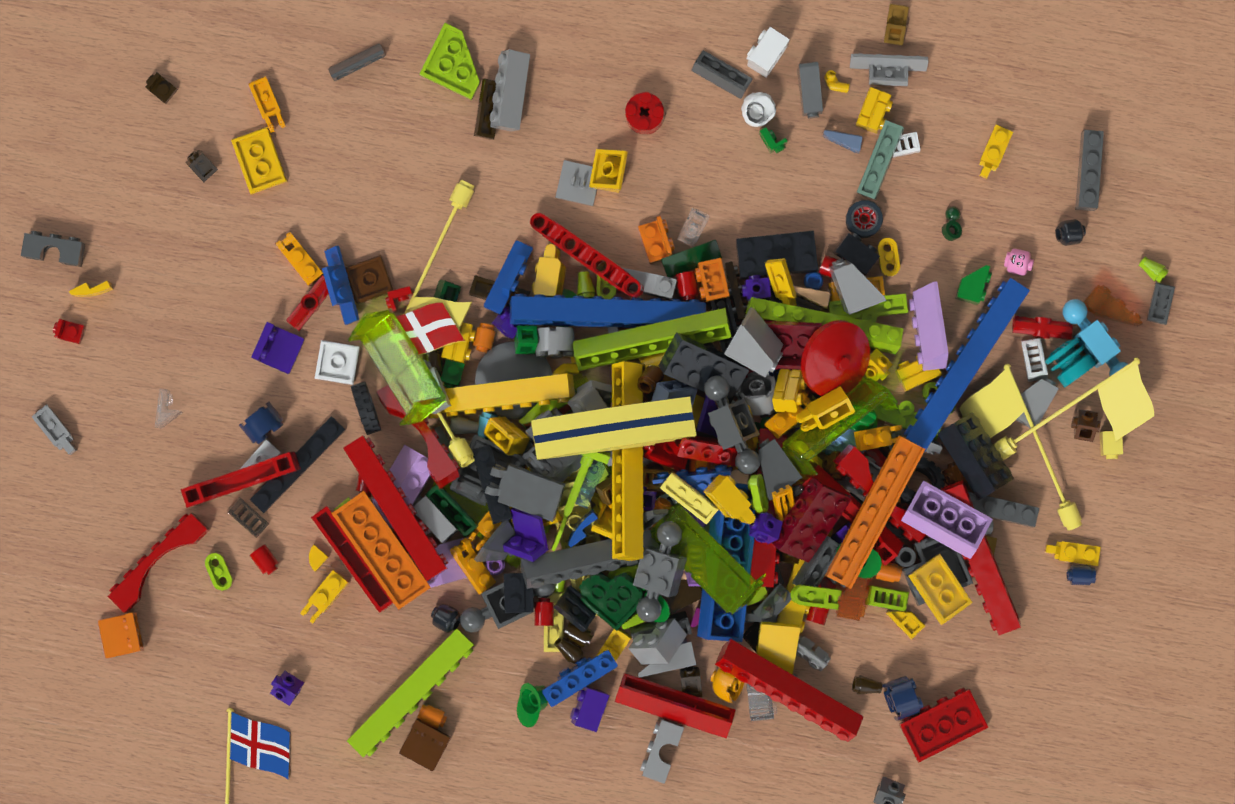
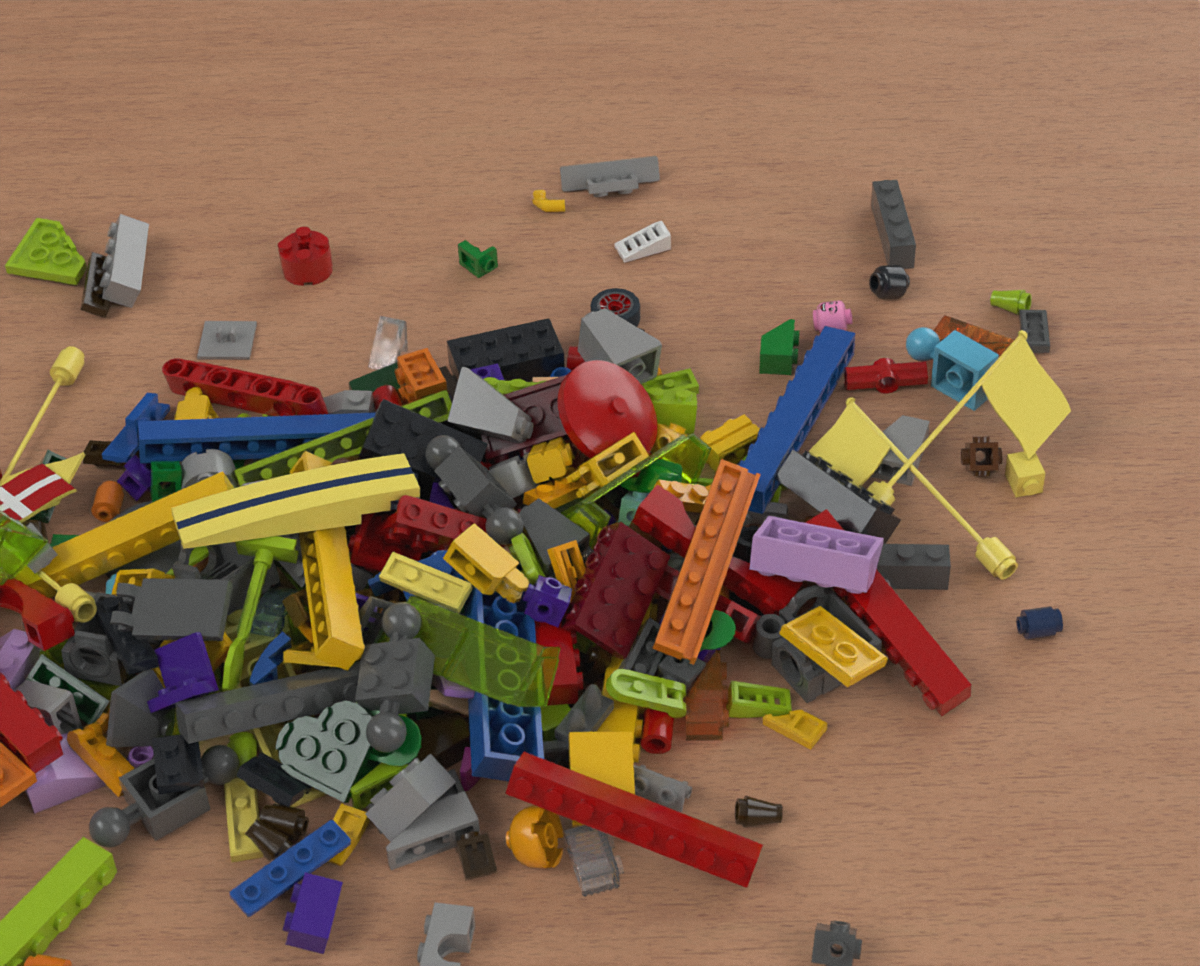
camera: 15 degrees left, 40 degrees down
(445, 618) = (63, 833): black head -> none
(460, 351) = (72, 512): yellow brick -> none
(530, 704) = (216, 923): green piece -> none
(544, 612) = (224, 796): red brick -> none
(608, 170) = (266, 314): yellow slope -> none
(655, 240) = (341, 368): orange bracket -> none
(675, 705) = (453, 882): red brick -> none
(721, 74) = (400, 218): dark grey slope -> none
(758, 109) = (452, 227): white hair -> none
(768, 51) = (454, 178): white brick -> none
(781, 281) = (513, 358): yellow hinge -> none
(810, 89) = (514, 201): dark grey slope -> none
(848, 141) = (581, 239): sand blue slope -> none
(873, 110) = (601, 215): yellow brick -> none
(880, 159) = (622, 250): sand green plate -> none
(890, 257) = (659, 331): yellow plate -> none
(890, 572) = (749, 664): orange brick -> none
(896, 24) = (610, 143): pearl gold slope -> none
(902, 697) = (817, 808): dark blue brick -> none
(929, 327) = (733, 380): lavender slope -> none
(943, 724) = (891, 839): red bracket -> none
(952, 229) = (732, 301): dark green plate -> none
(994, 150) = (767, 230): yellow hinge -> none
(1035, 375) = (887, 412): white slope -> none
(1070, 361) = (934, 391): teal wheel -> none
(1075, 553) = (1010, 603): yellow hinge -> none

